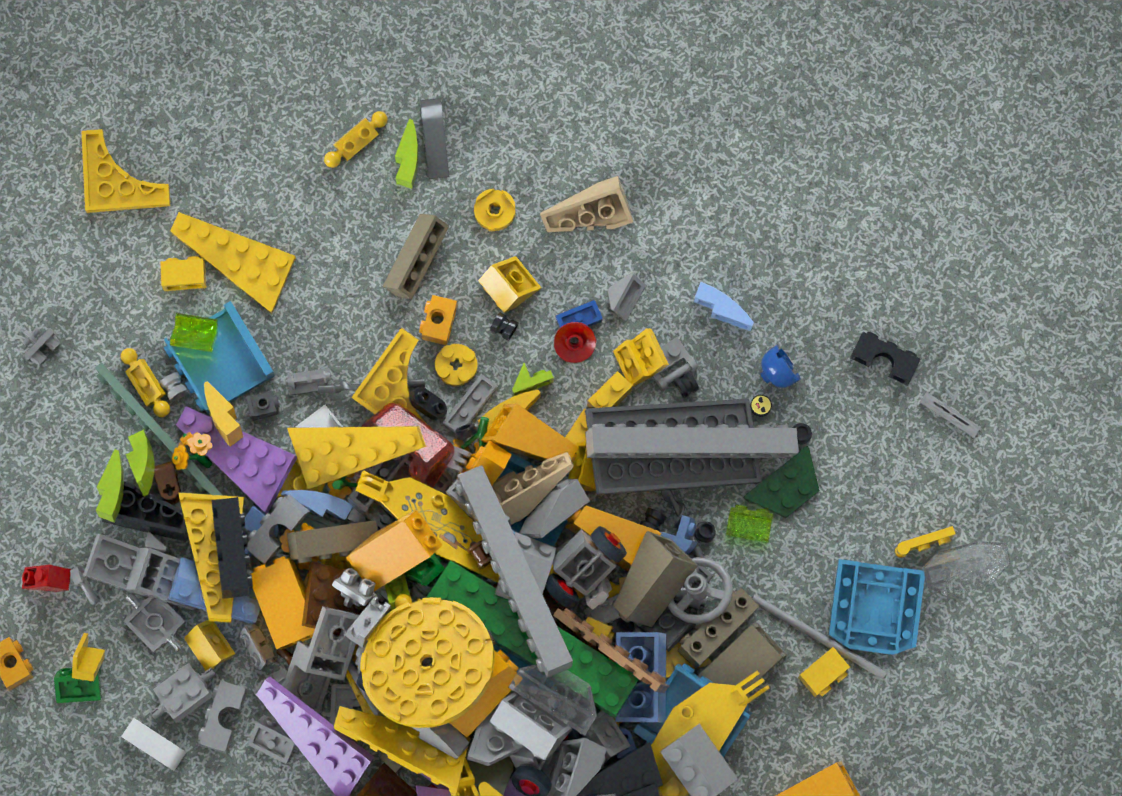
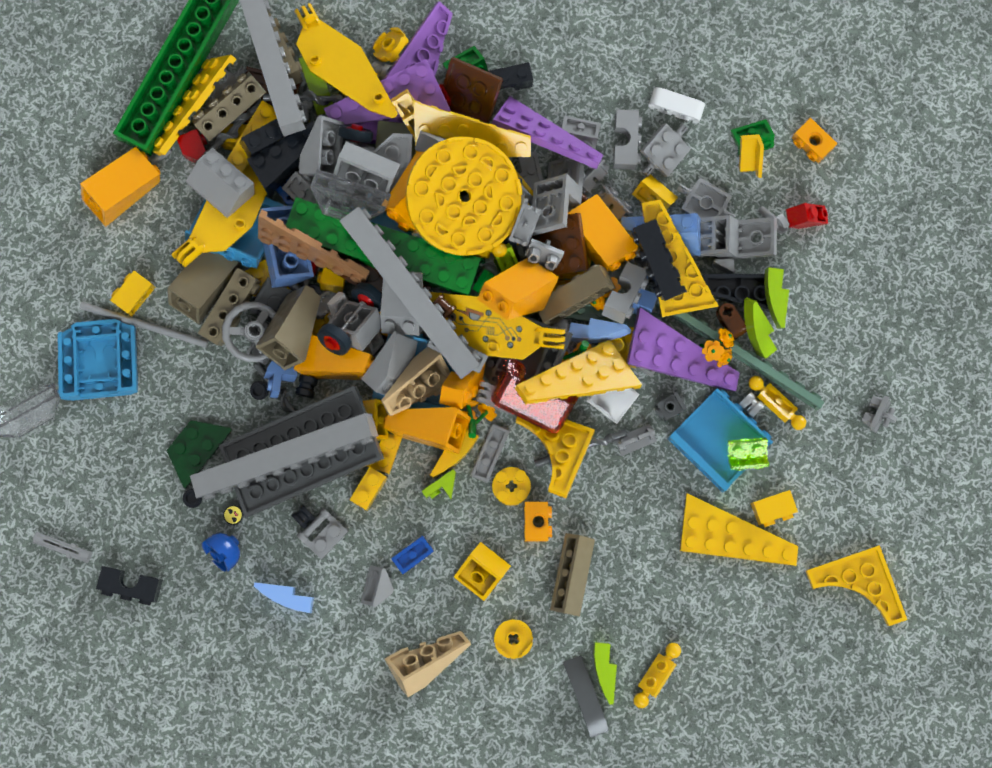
camera: 165 degrees right, 5 degrees up
(222, 415) = (702, 383): yellow slope -> none
(430, 406) = (524, 442): black plate -> none
(465, 431) = (487, 424): black tile -> none
(504, 326) = (477, 530): black wheel -> none
(576, 351) = (410, 524): red dish -> none
(640, 357) = (348, 530): yellow slope -> none
(749, 524) = (222, 405): clear neon green bracket -> none
(923, 542) = (66, 425): yellow plate -> none

